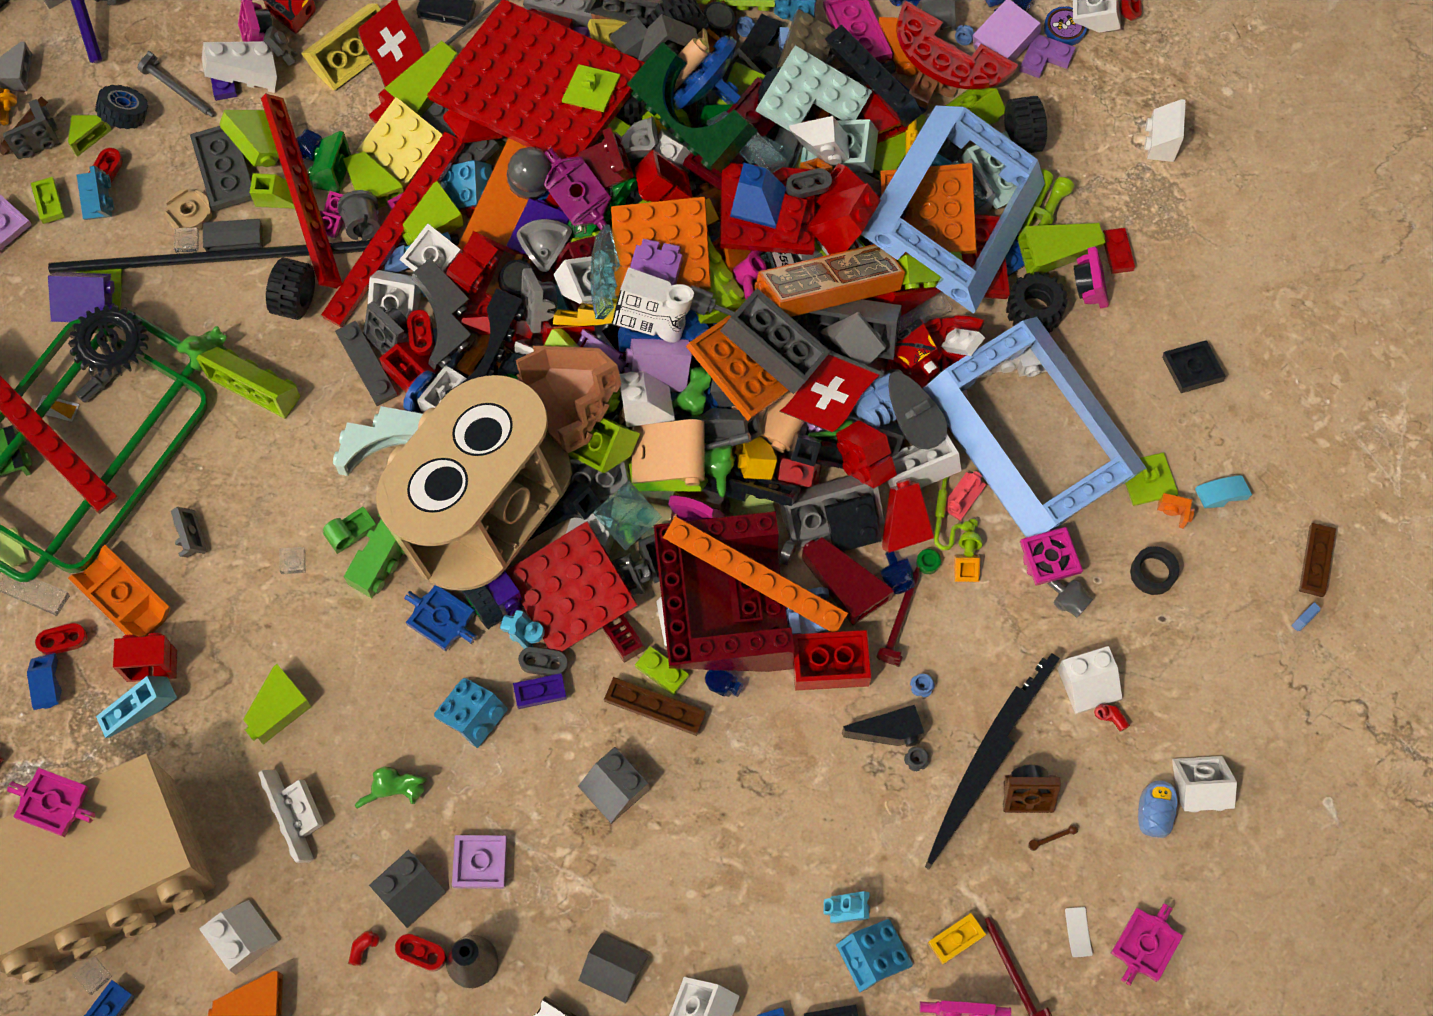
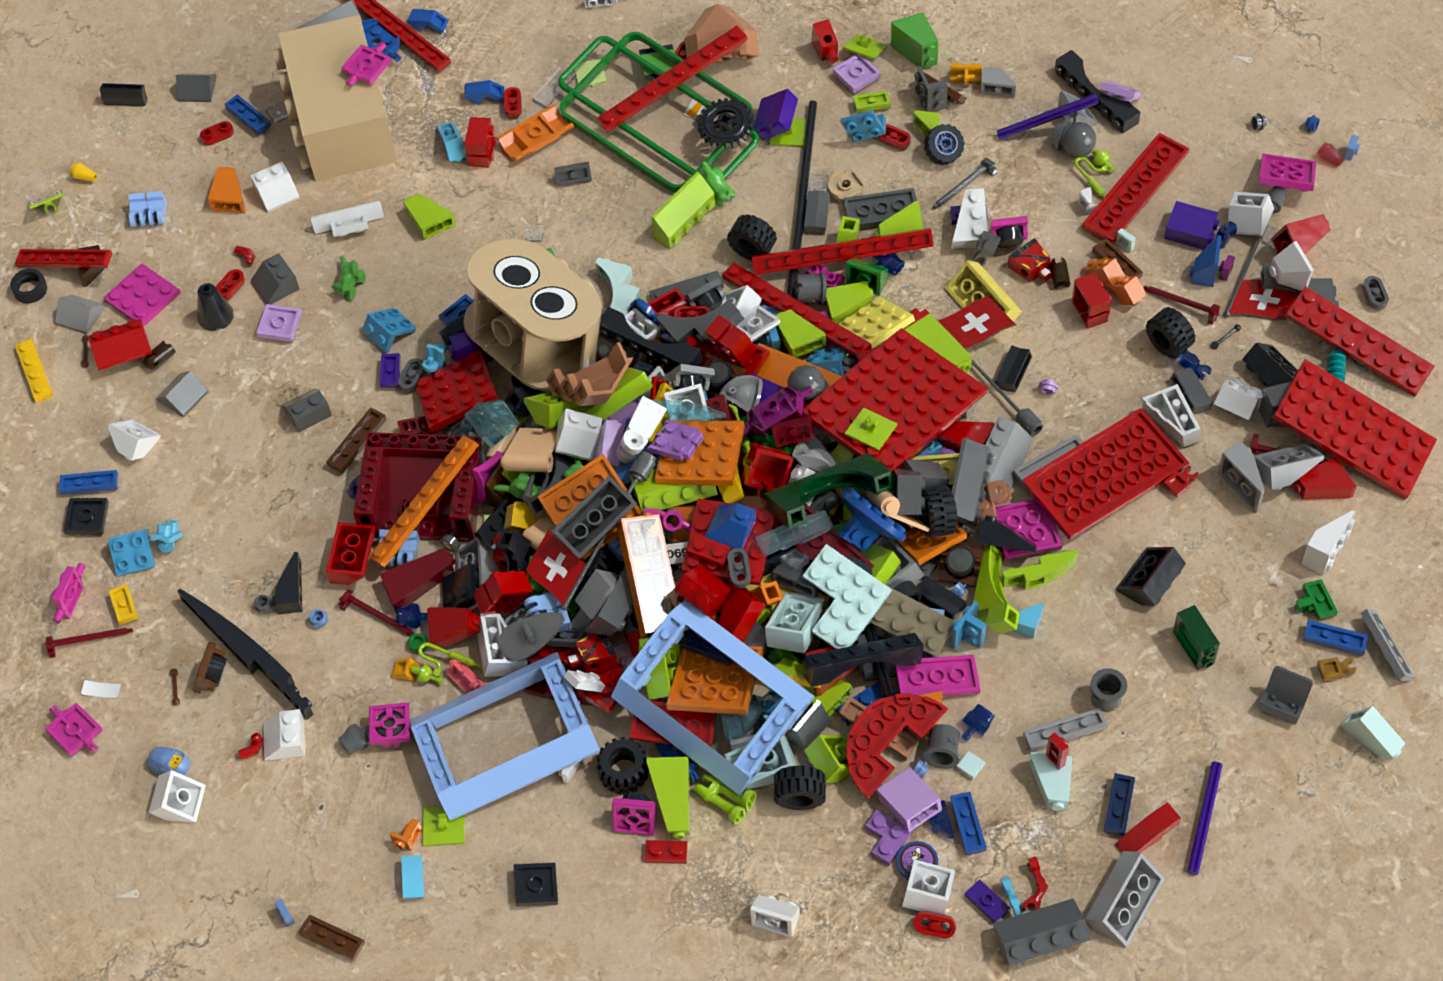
camera: 105 degrees right, 10 degrees down
(823, 139) = (786, 593): white slope -> none
(1157, 553) = (350, 794): black tyre -> none

